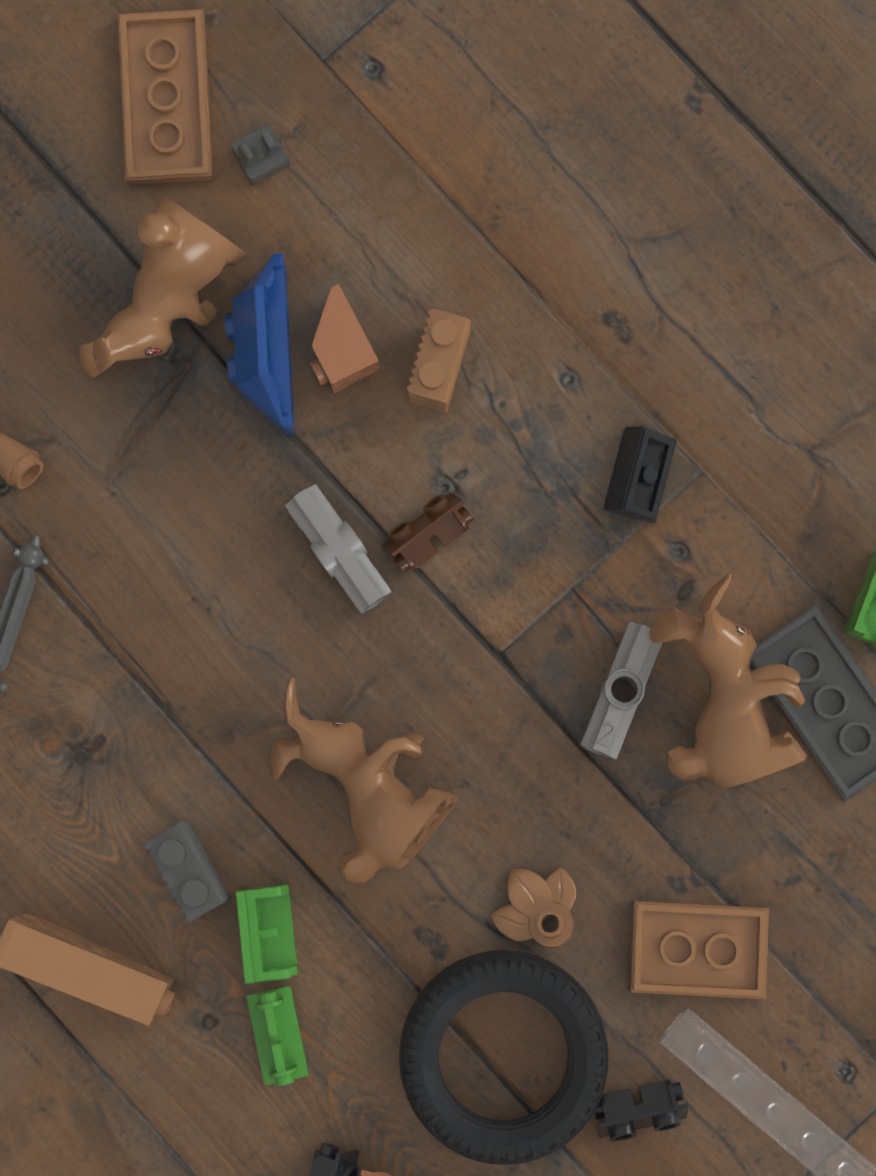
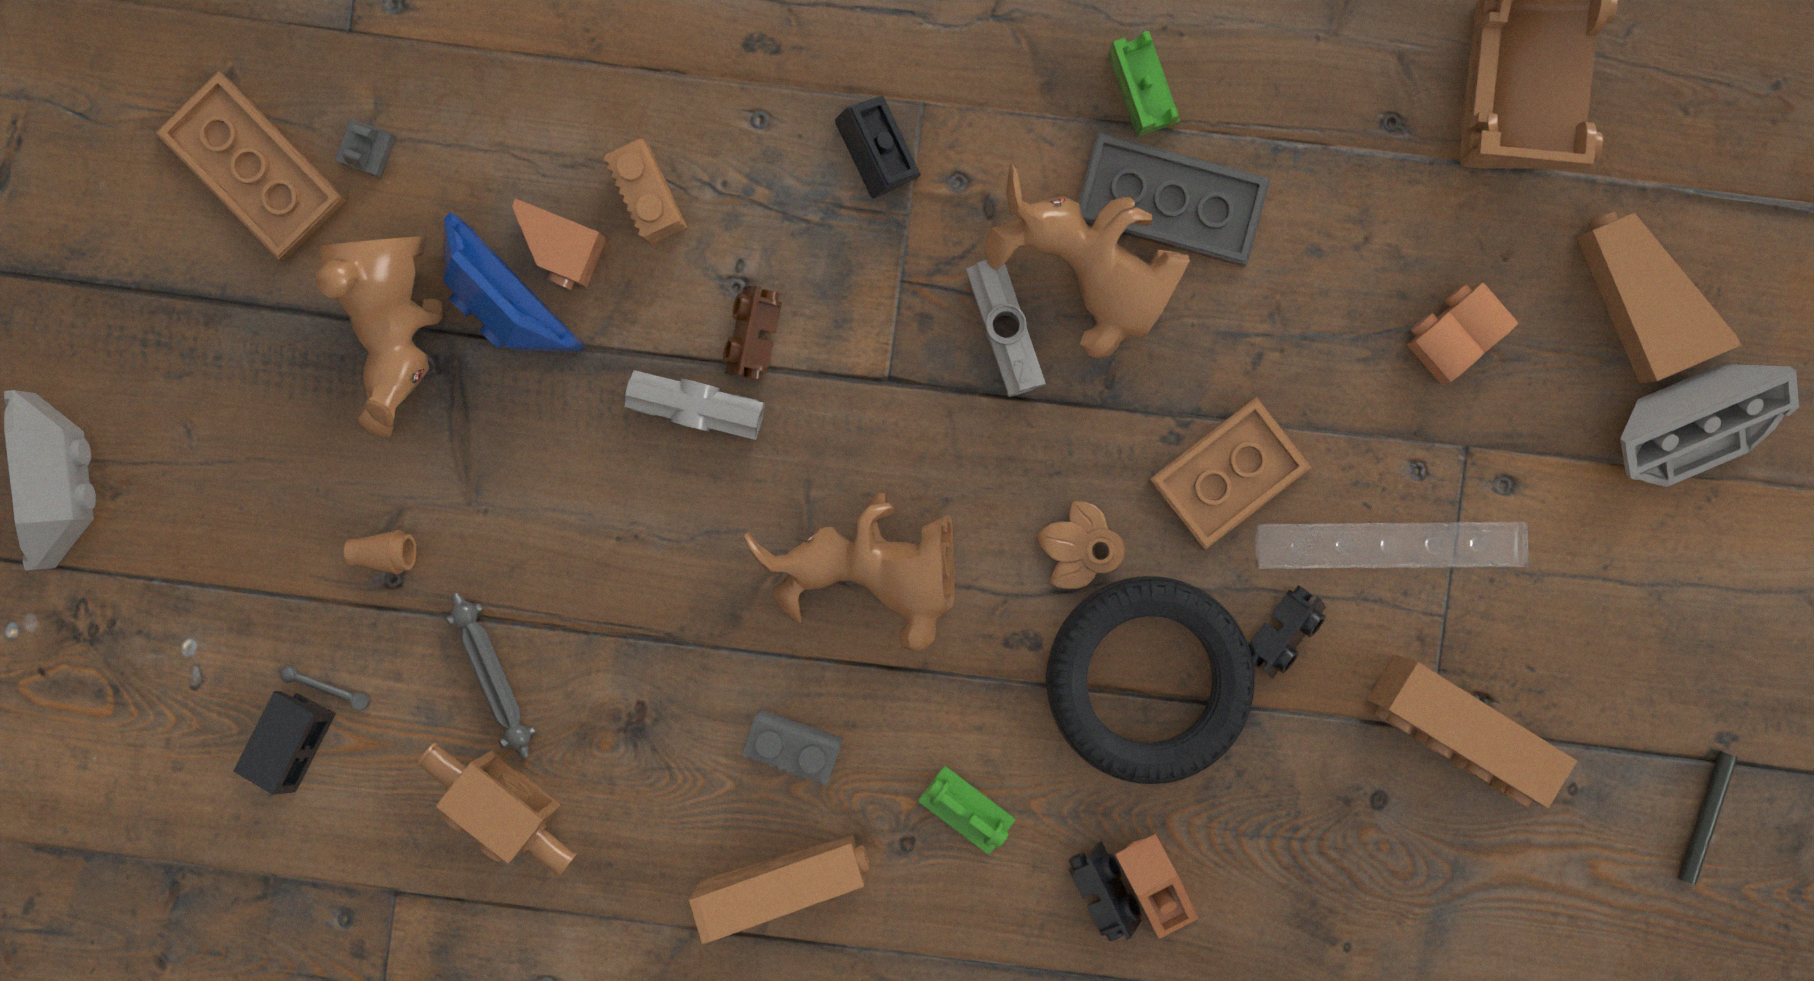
camera: 40 degrees left, 5 degrees up
(267, 933) = (893, 742): bright green hinge -> none

